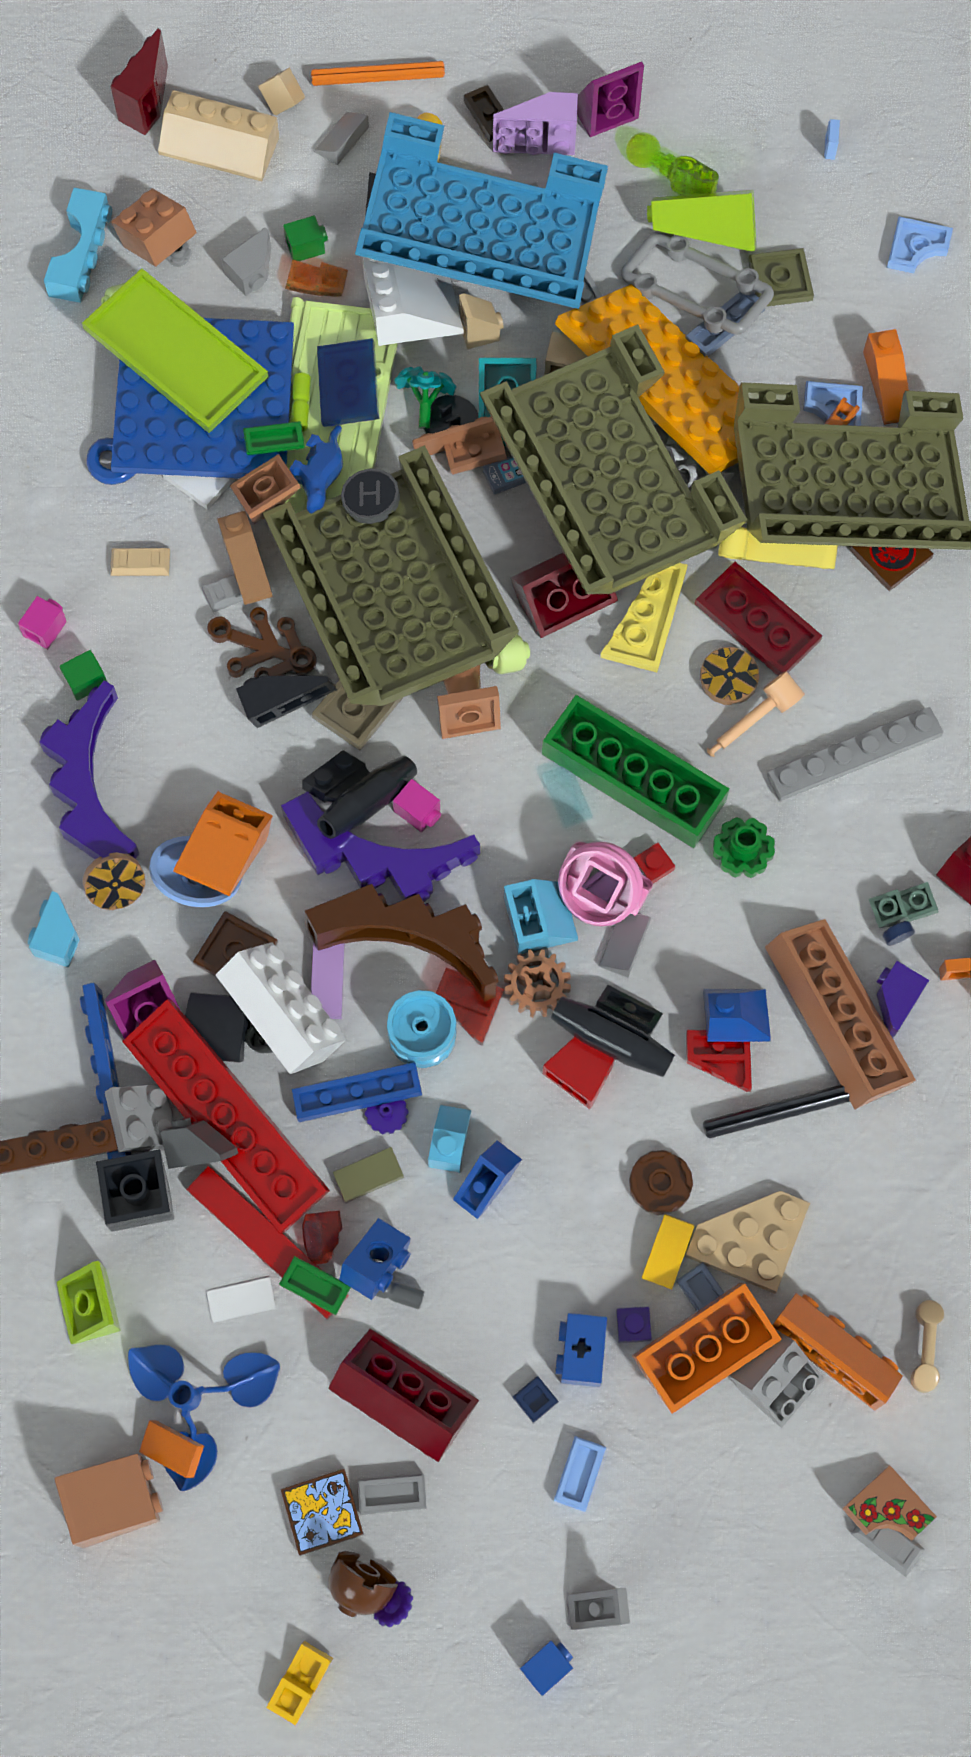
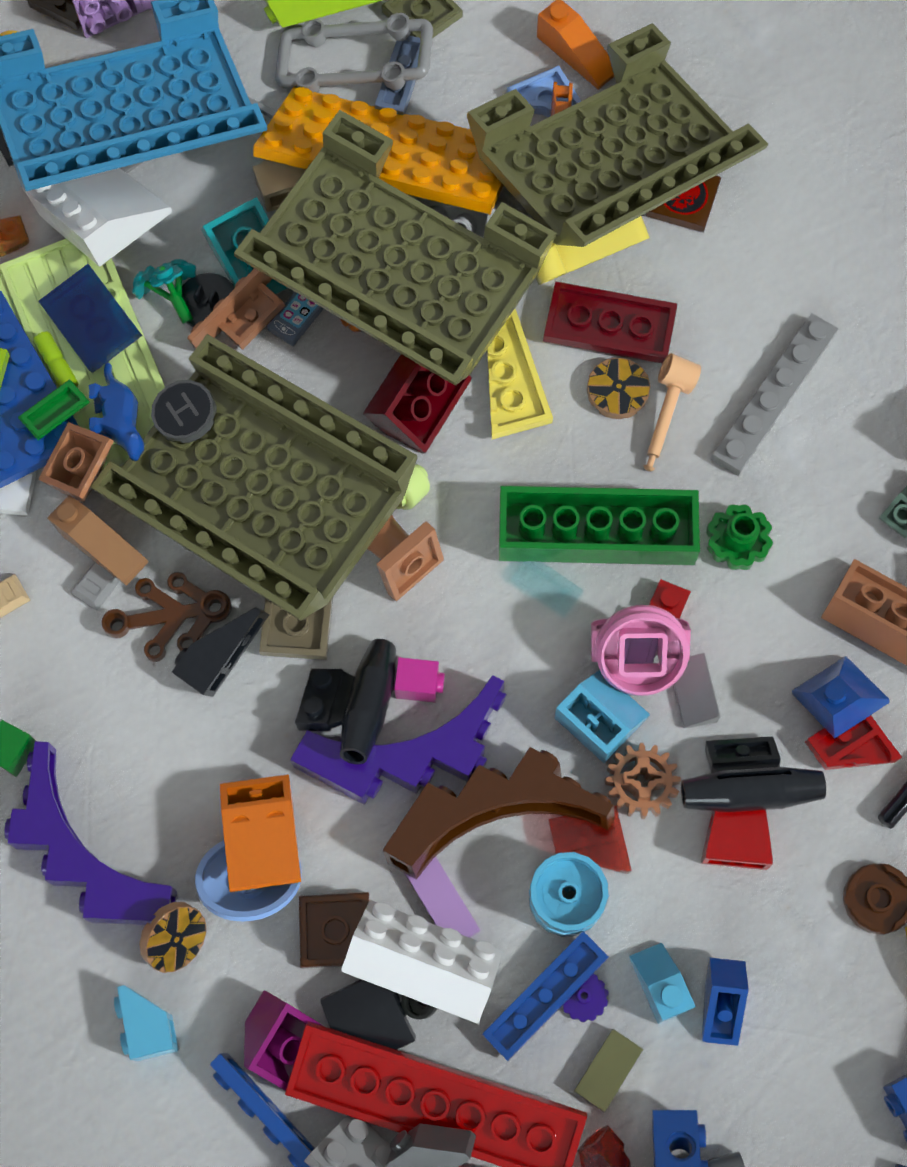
camera: 30 degrees left, 0 degrees up
(479, 321) = (179, 193): tan slope -> none

